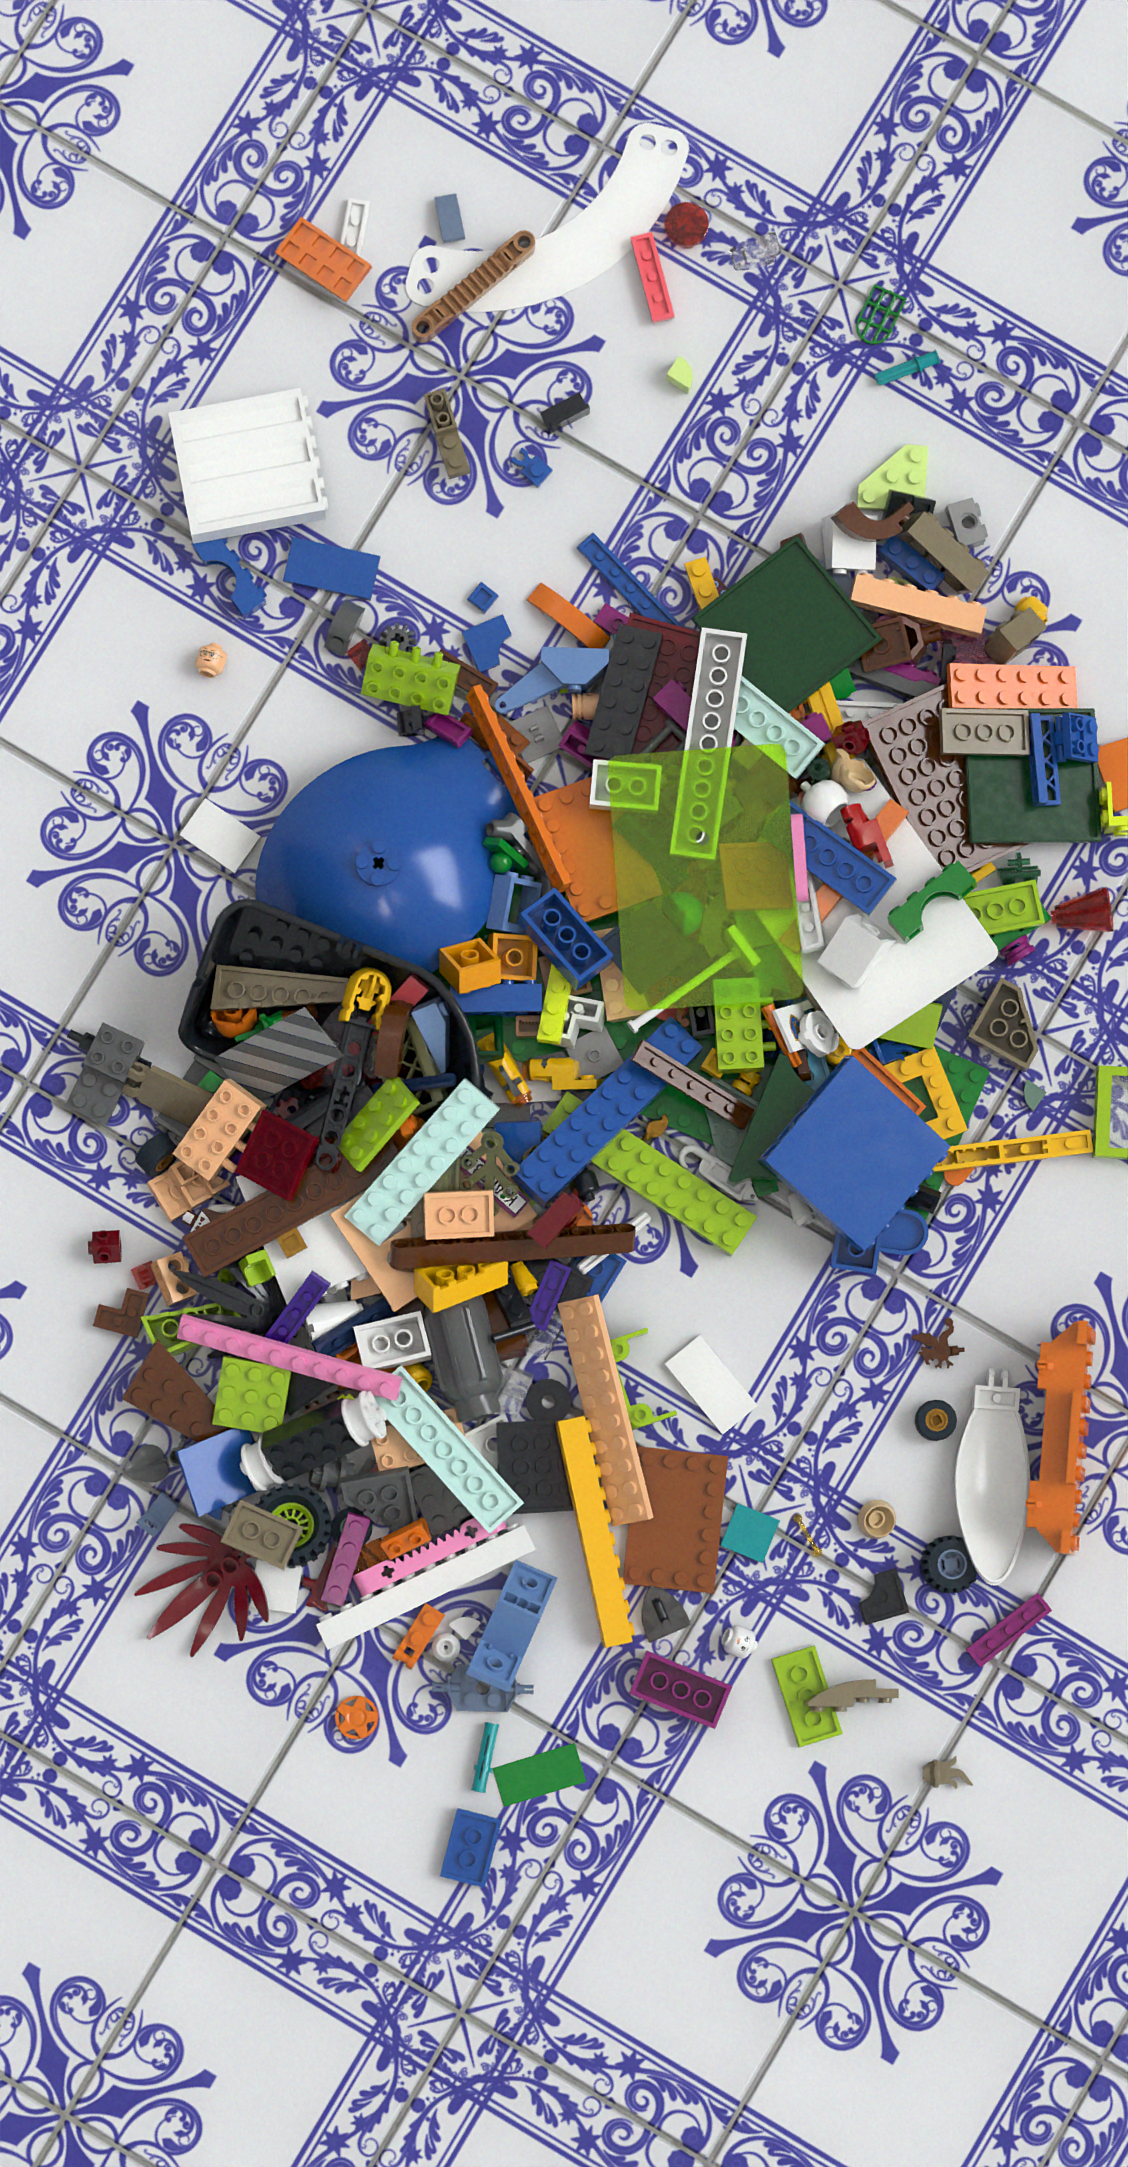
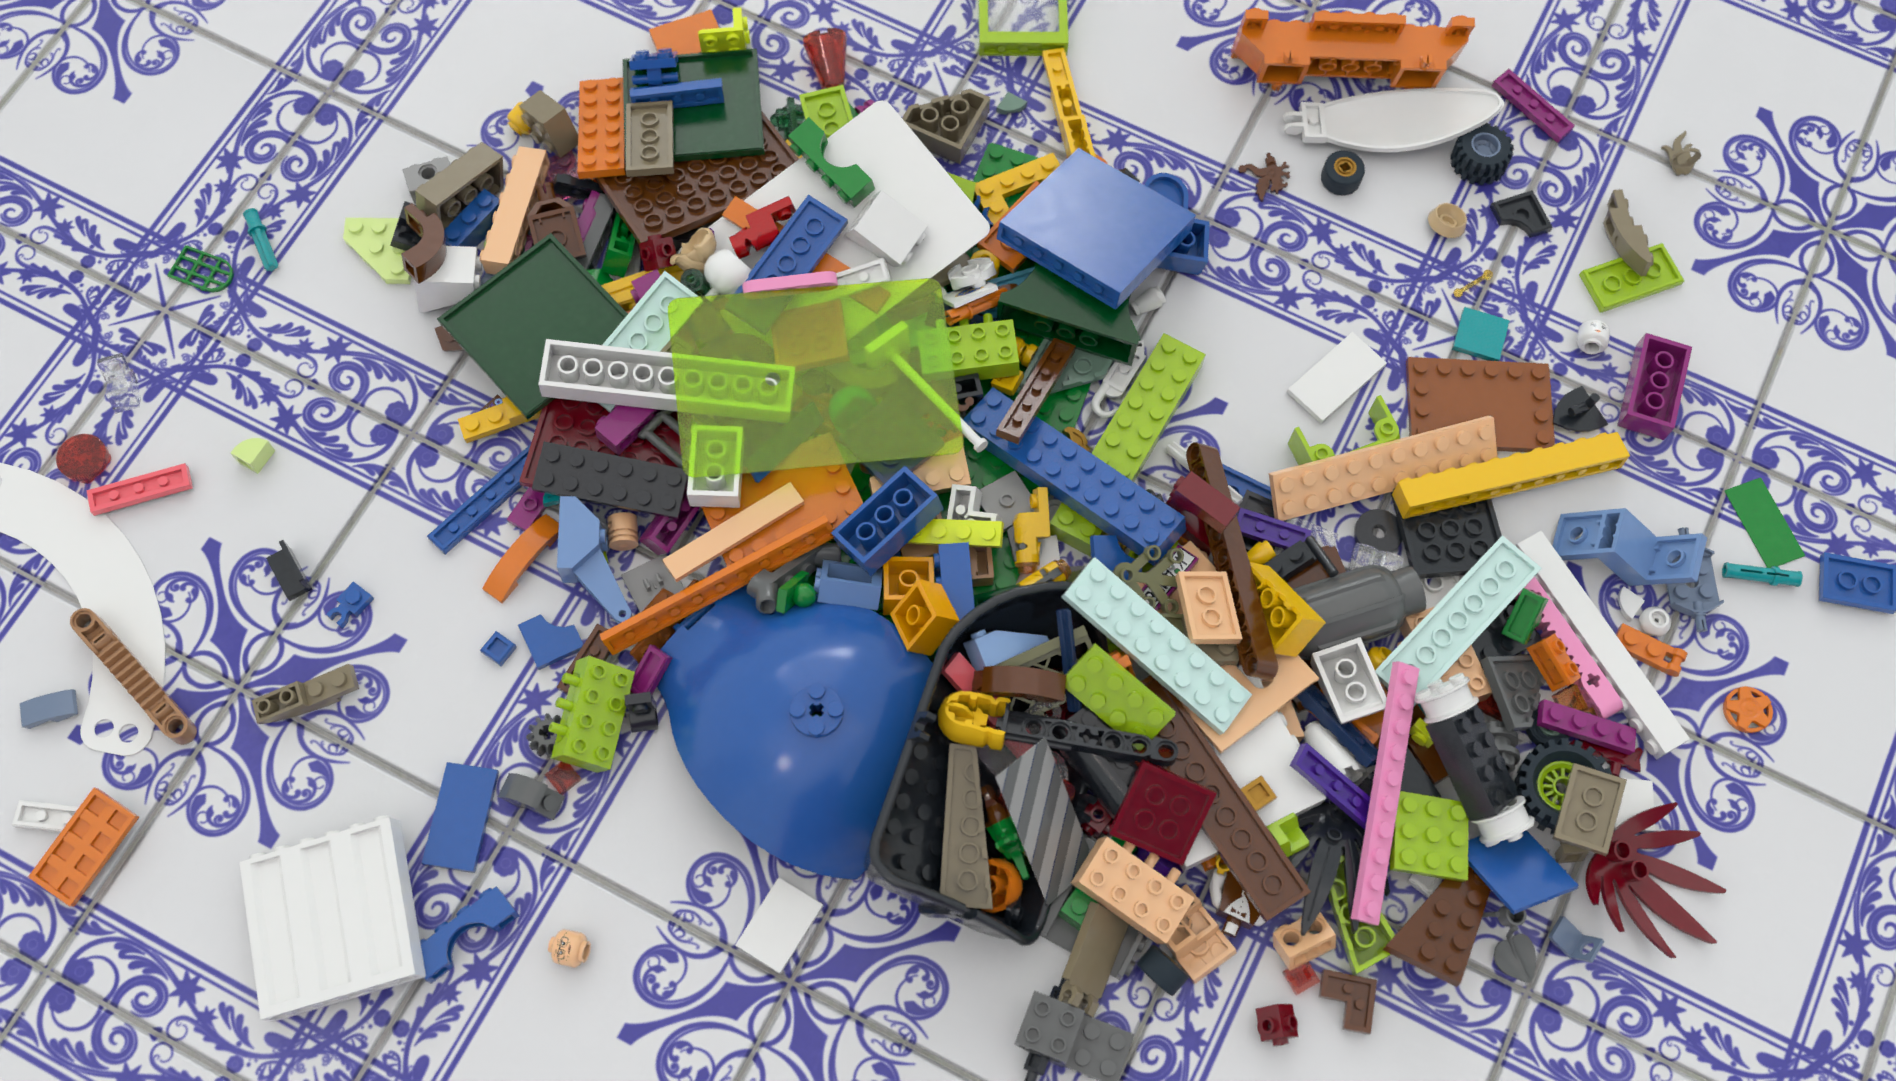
camera: 90 degrees left, 15 degrees down
(447, 1514) = (1525, 616): none -> green tile
(565, 802) = (733, 532): none -> light nougat tile
(869, 702) = (619, 249): none -> green slope

